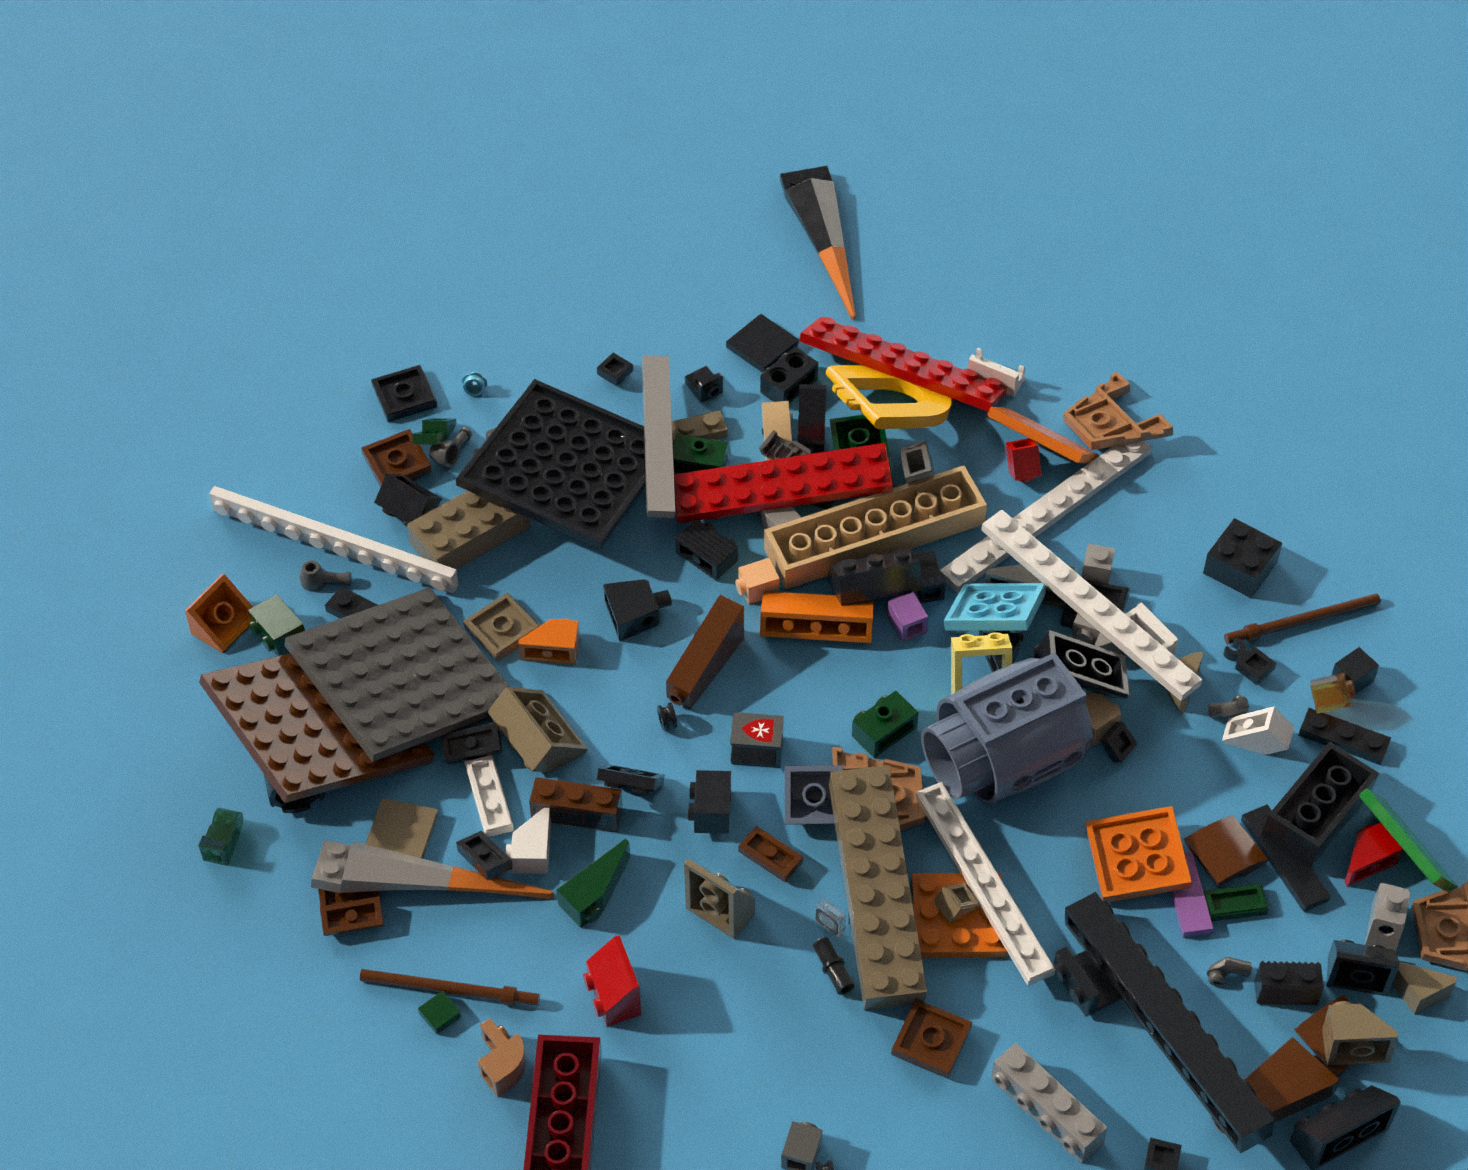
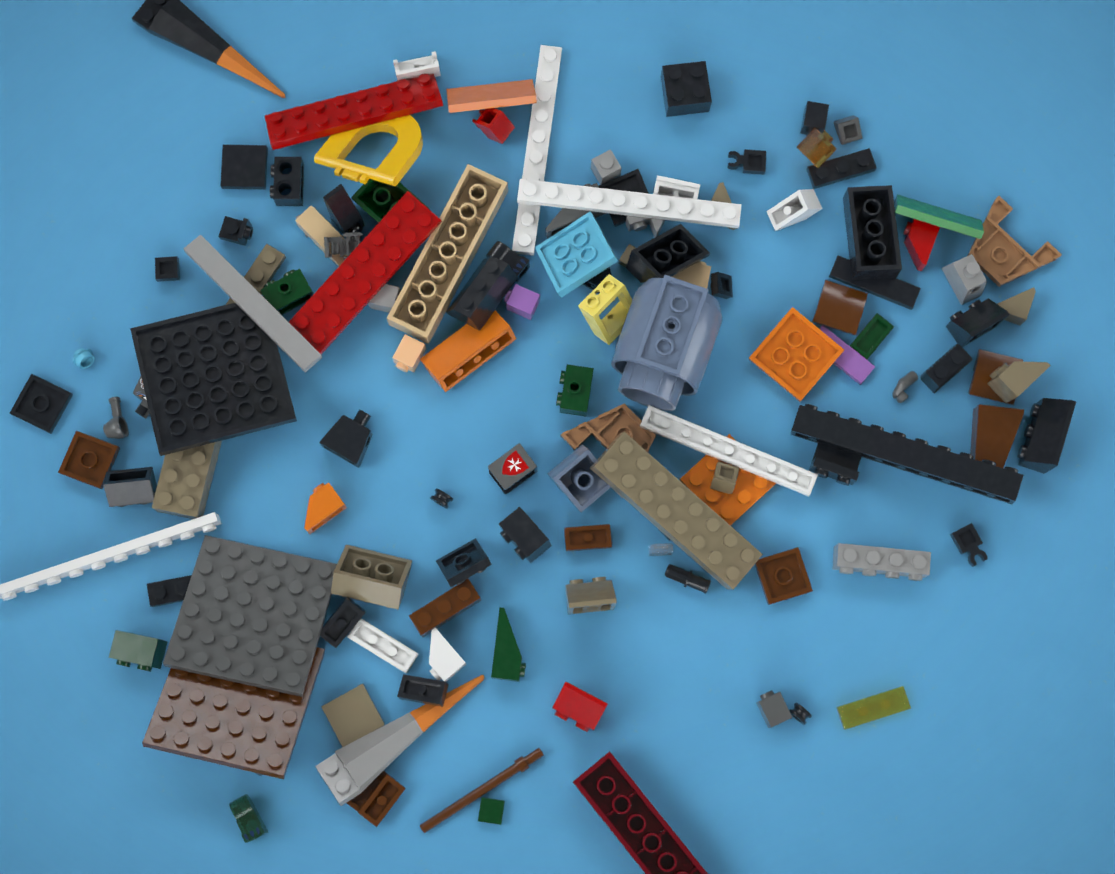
camera: 45 degrees left, 25 degrees up
(219, 614) = (91, 673): orange slope -> none
(314, 577) = (126, 587): dark grey bar -> none
(434, 431) = (95, 418): dark green slope -> none
(500, 626) = (277, 522): dark tan tile -> none
(506, 1062) = (563, 808): medium nougat brick -> none
(707, 549) = (355, 357): black brick -> none
(707, 652) = (428, 436): reddish brown slope -> none
(917, 462) = (436, 186): dark grey slope -> none
(1104, 424) = (517, 53): medium nougat wing -> none
(1238, 706) = (767, 200): dark grey arm -> none
(1254, 632) = (733, 136): reddish brown bar -> none
(1384, 709) = (848, 129): none -> dark grey slope

